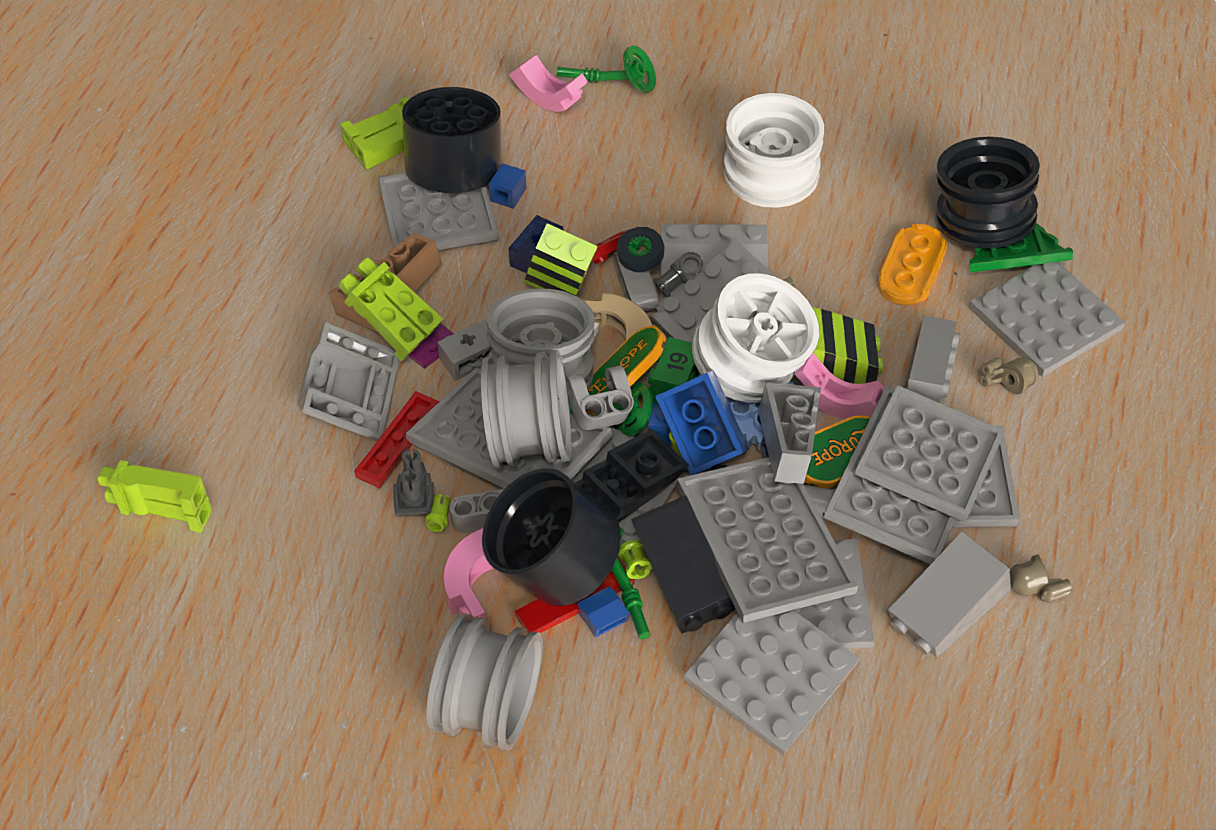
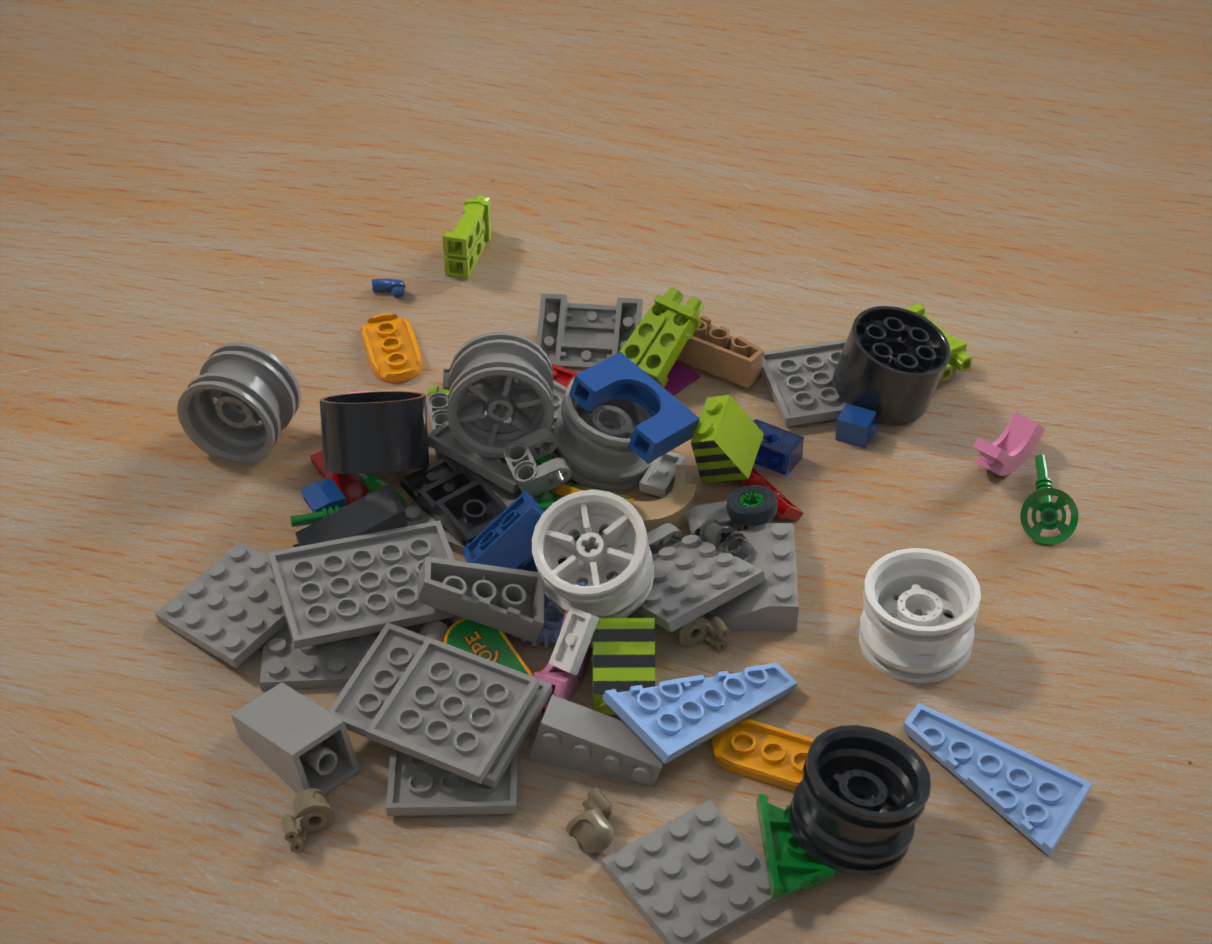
camera: 90 degrees right, 10 degrees down
(219, 581) = (388, 284): none -> blue arm
(338, 573) = (391, 348): none -> light orange tile
(570, 277) = (622, 379): none -> blue arch
(836, 368) = (573, 640): none -> white plate
(893, 299) = (696, 708): none -> light blue wing
(922, 125) = (1019, 786): none -> light blue wing

